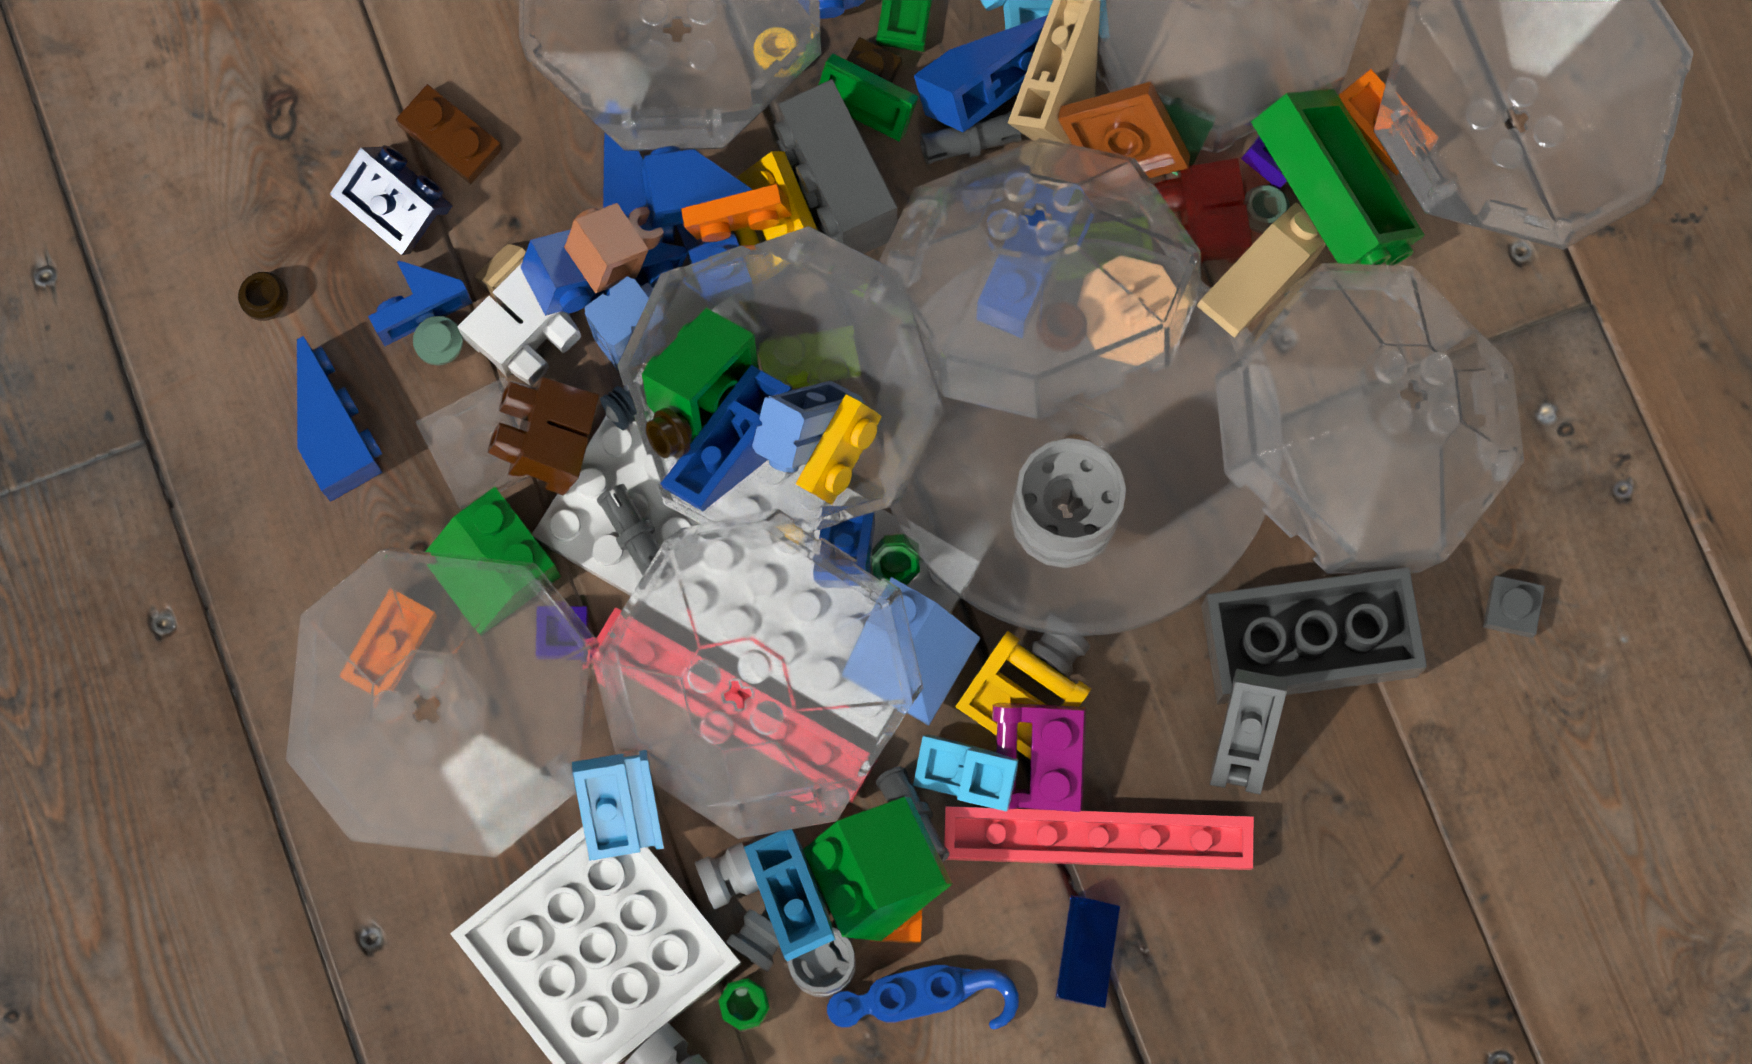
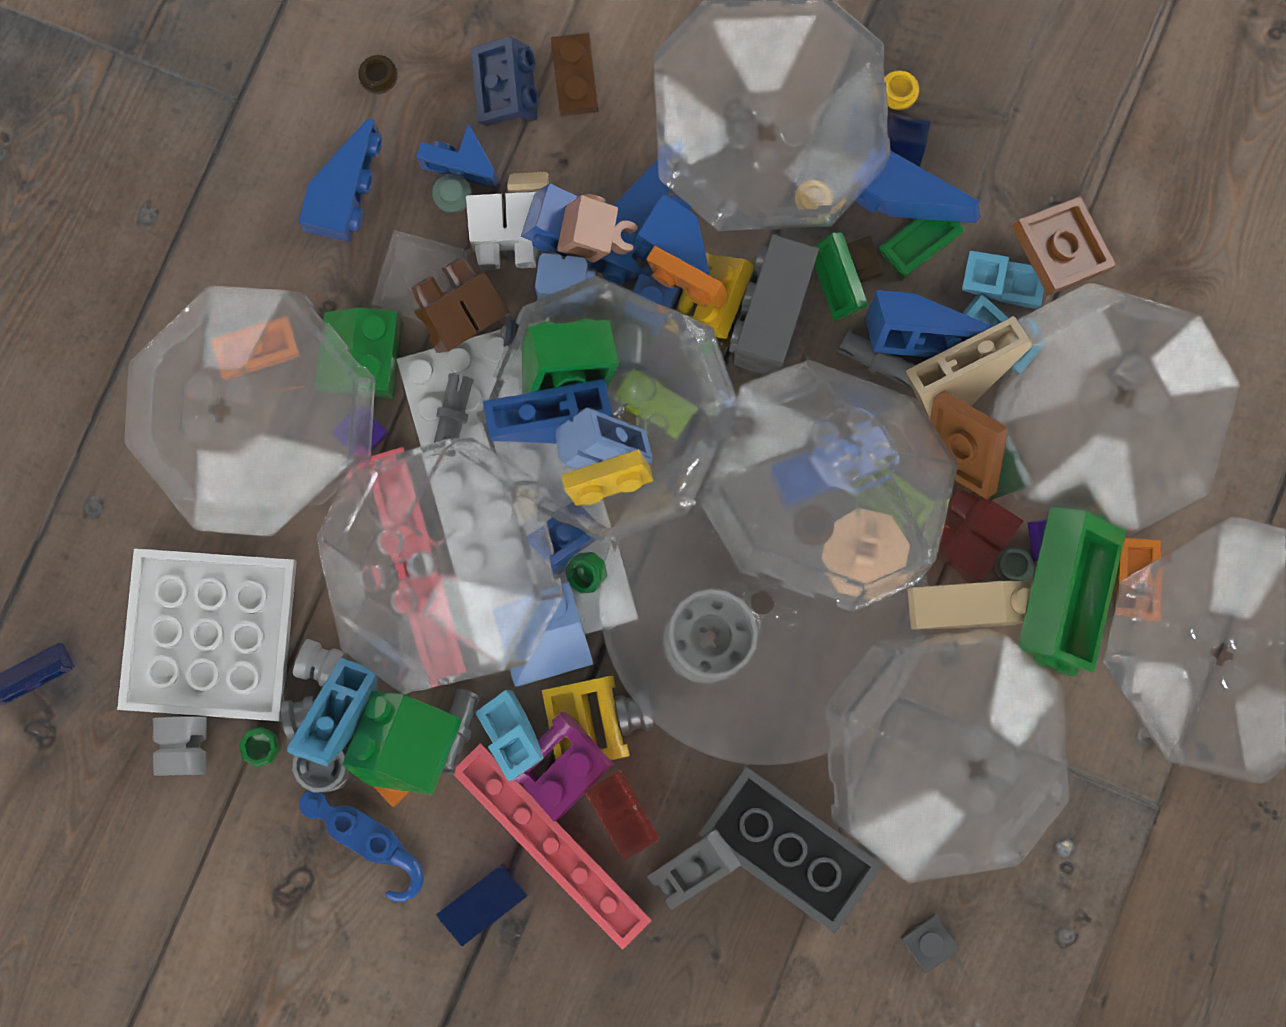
camera: 45 degrees right, 5 degrees up
(617, 805) = (288, 565): plate -> none
(669, 433) = (513, 376): dark brown plate -> none
(1146, 750) = (622, 815): none -> clear red hips

